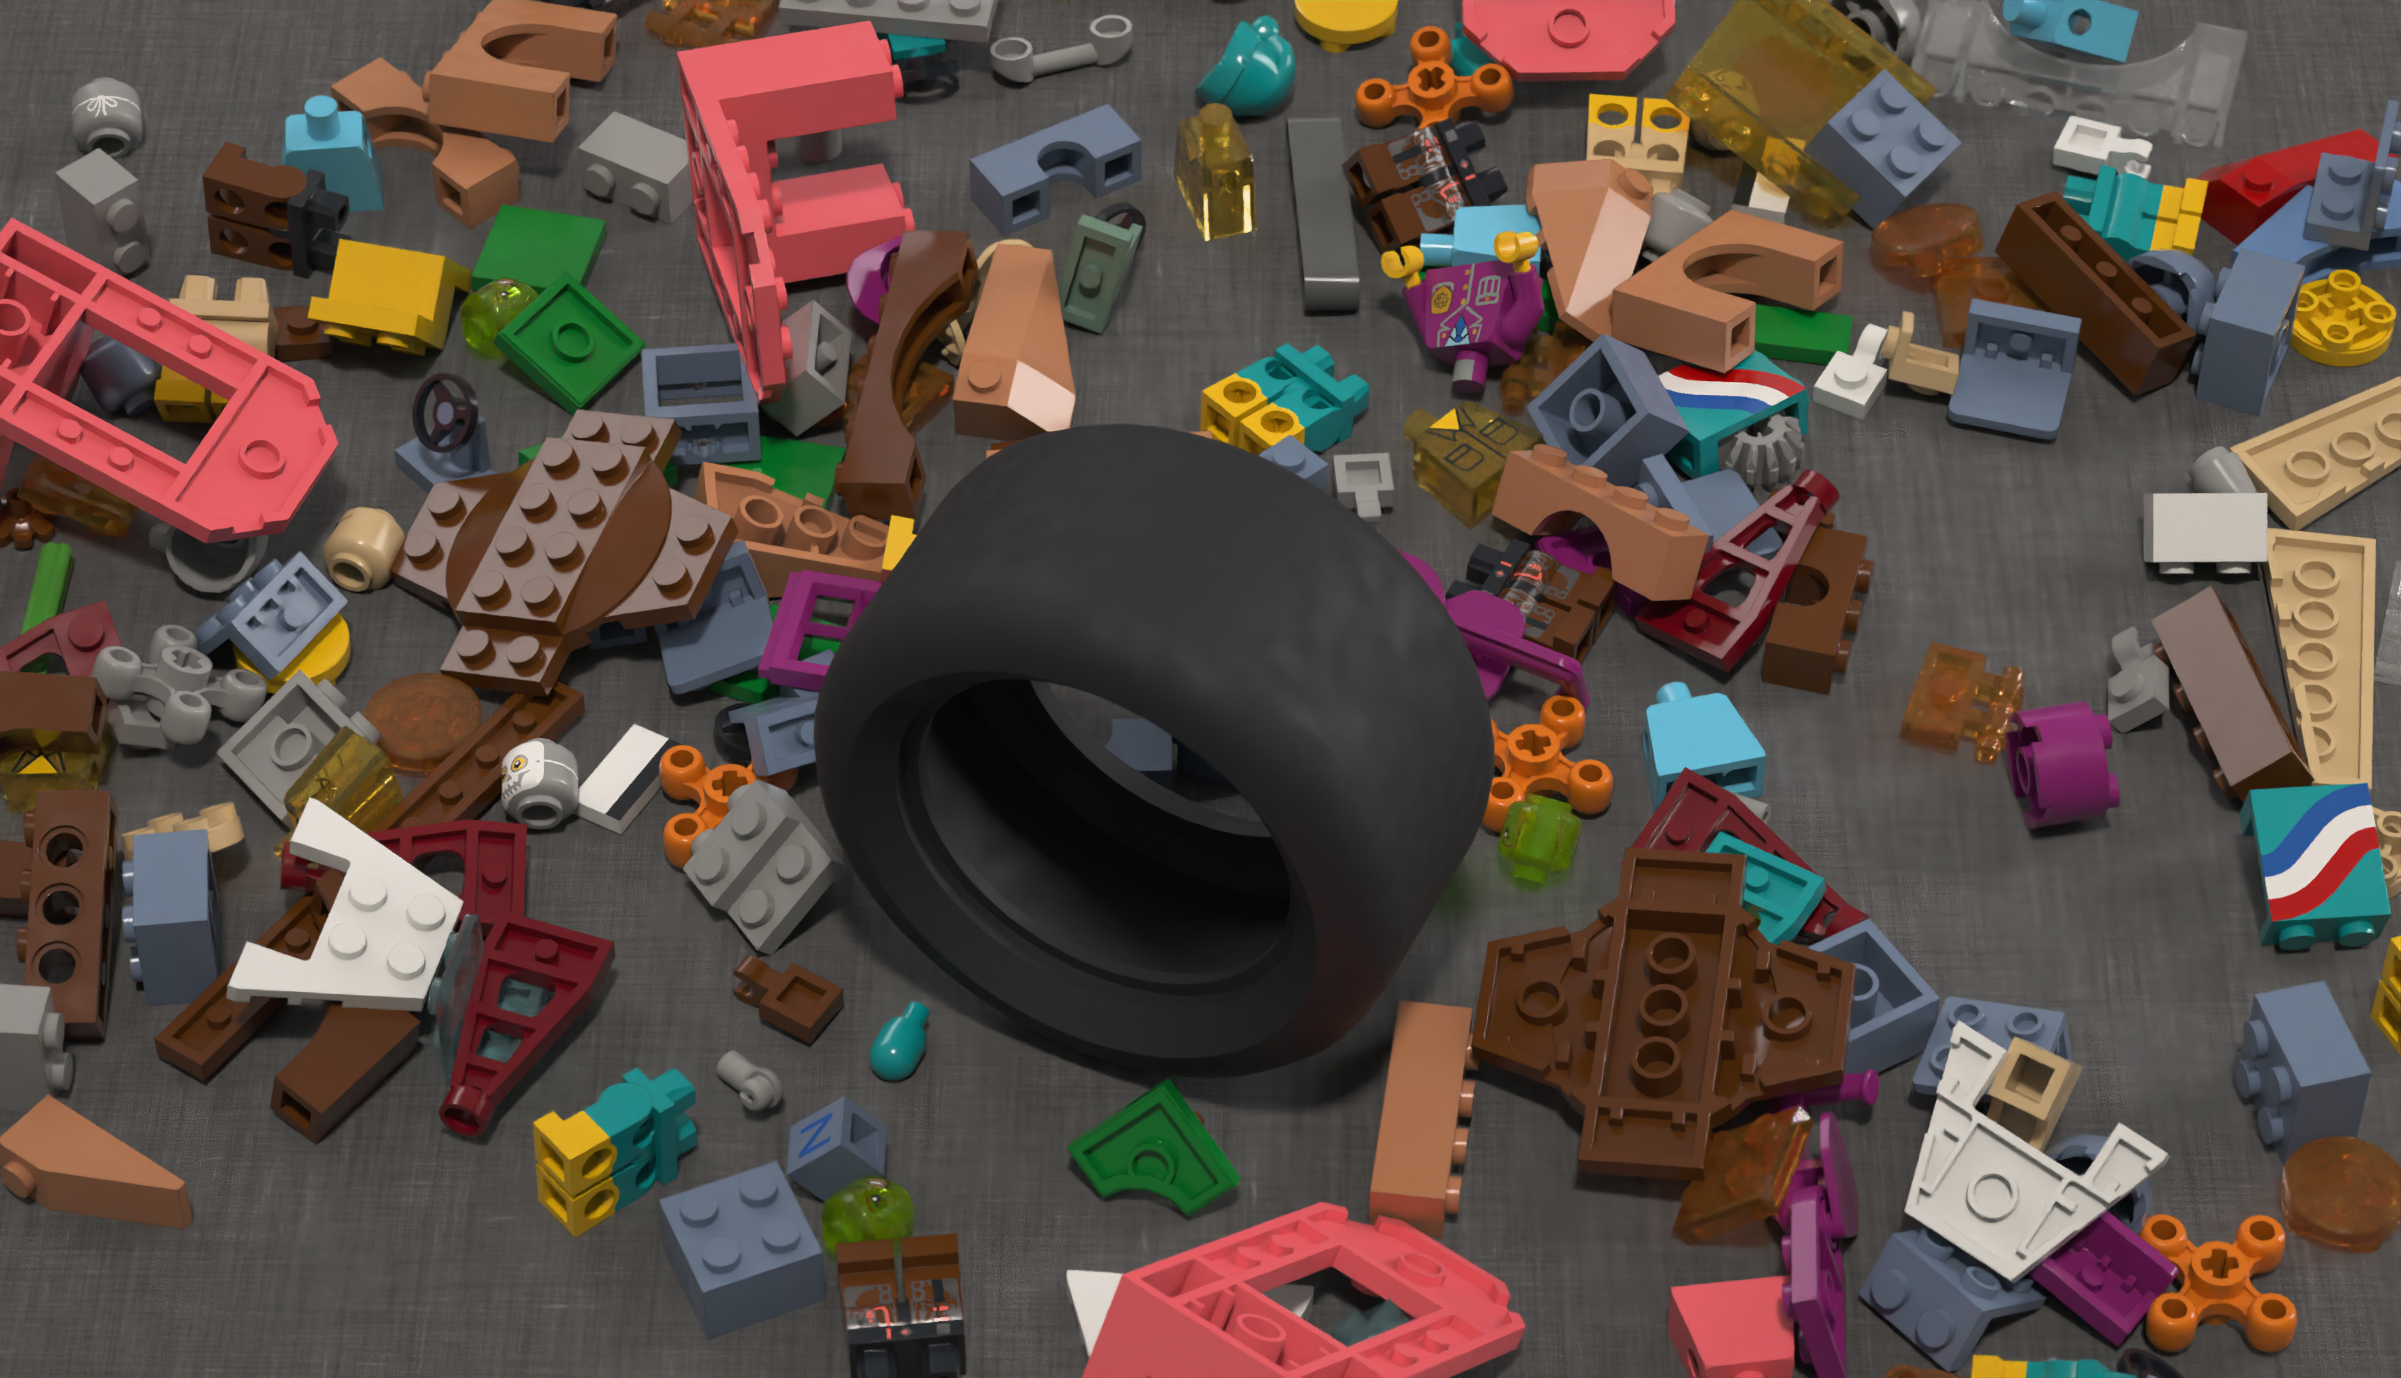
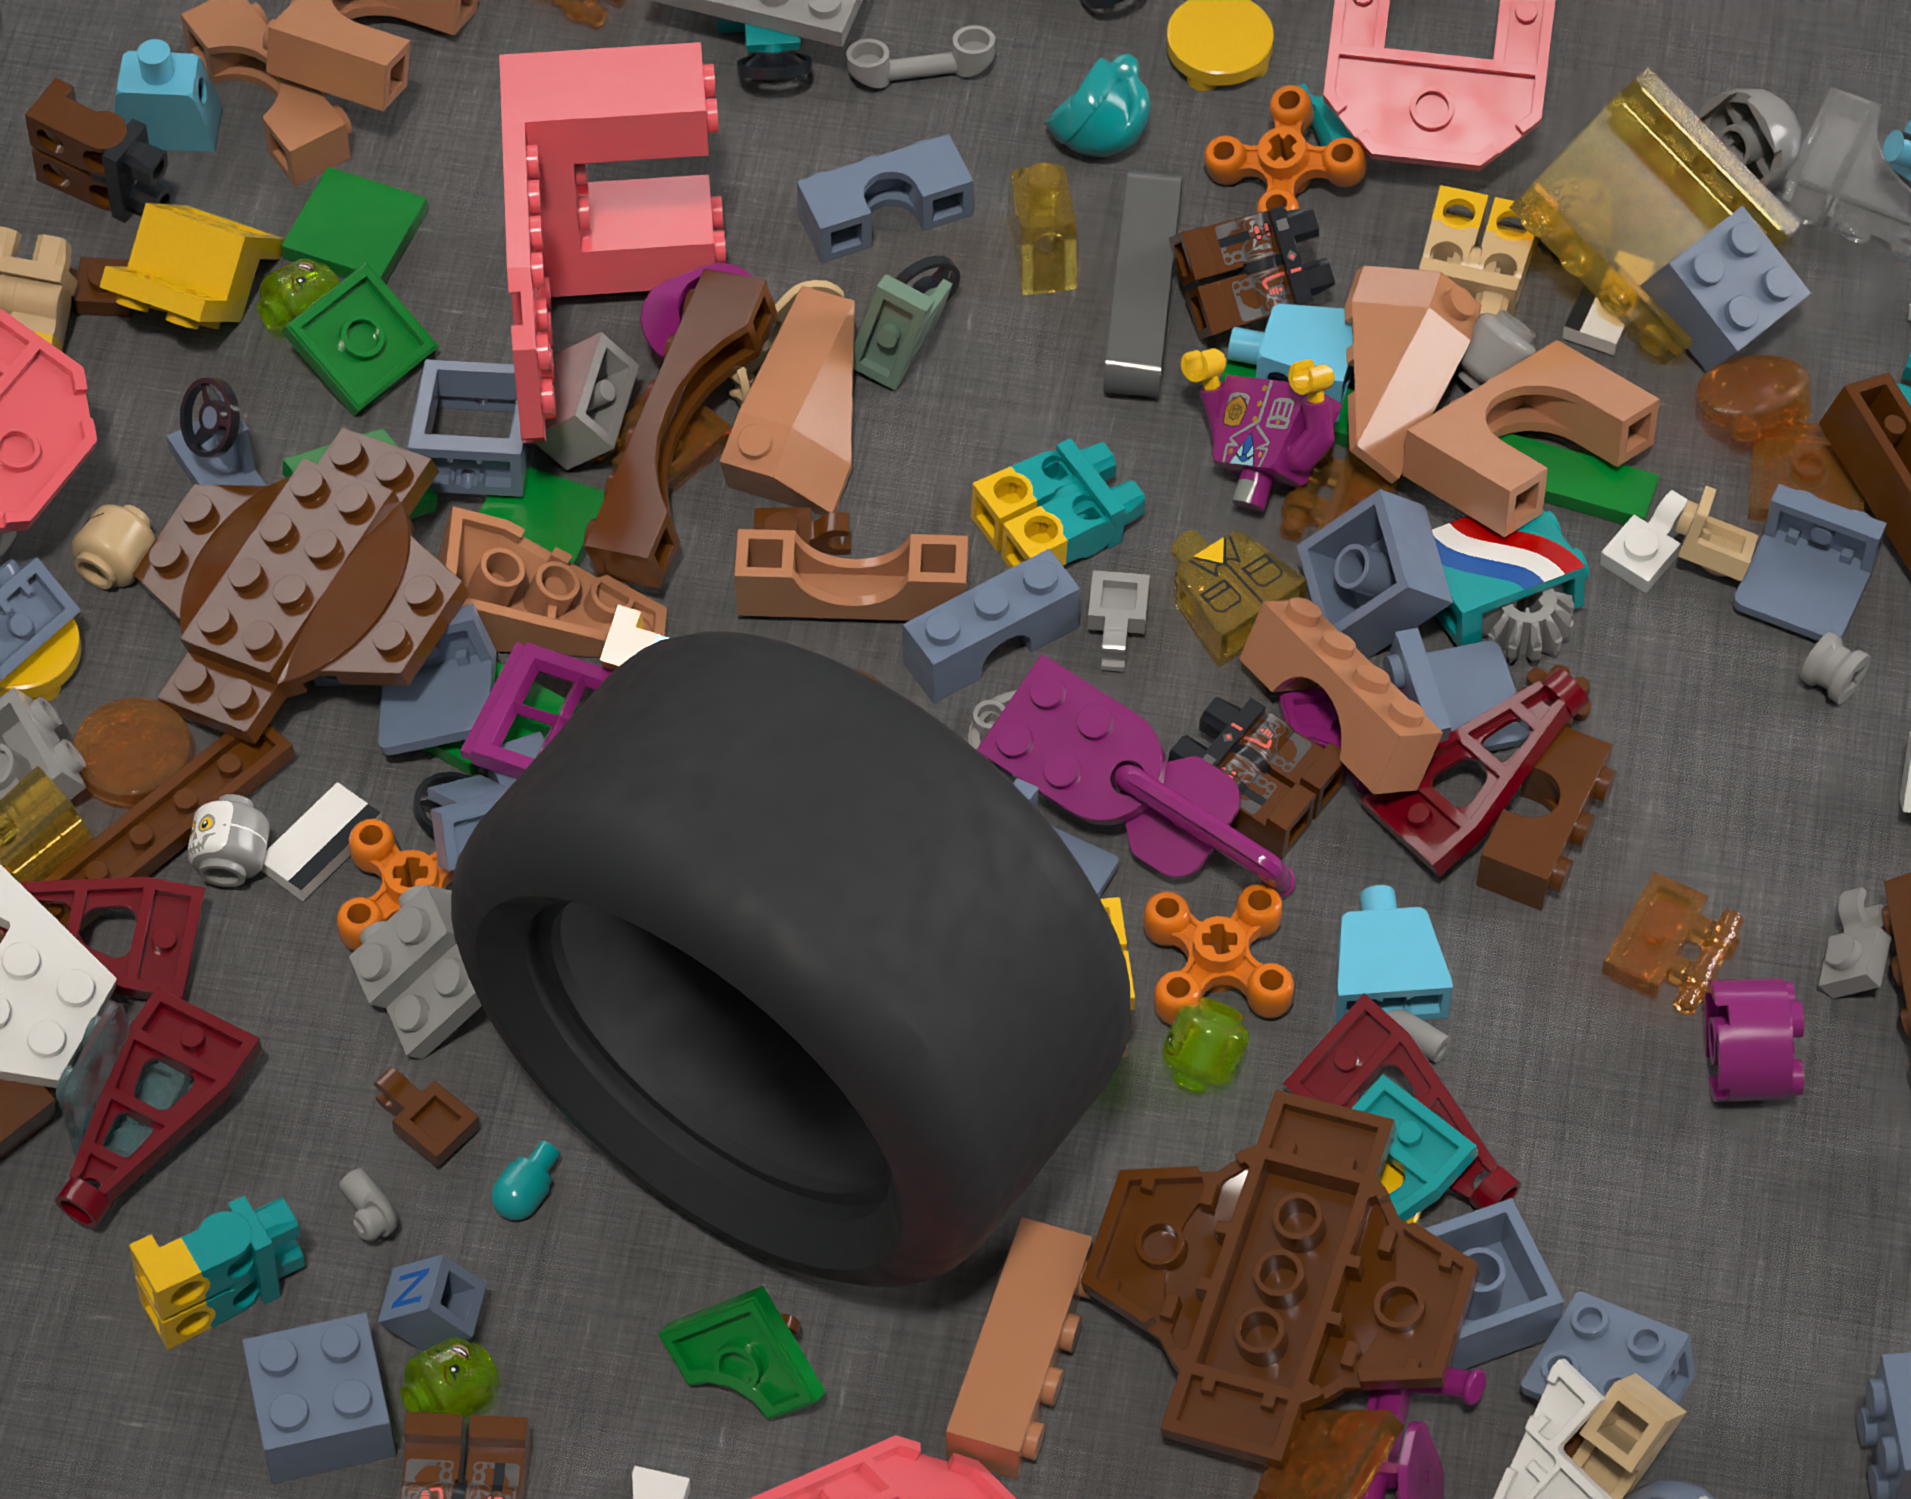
camera: 10 degrees right, 10 degrees up
(637, 167) = (462, 139): light grey brick -> none
(2058, 454) = (1835, 667): none -> light grey wheel

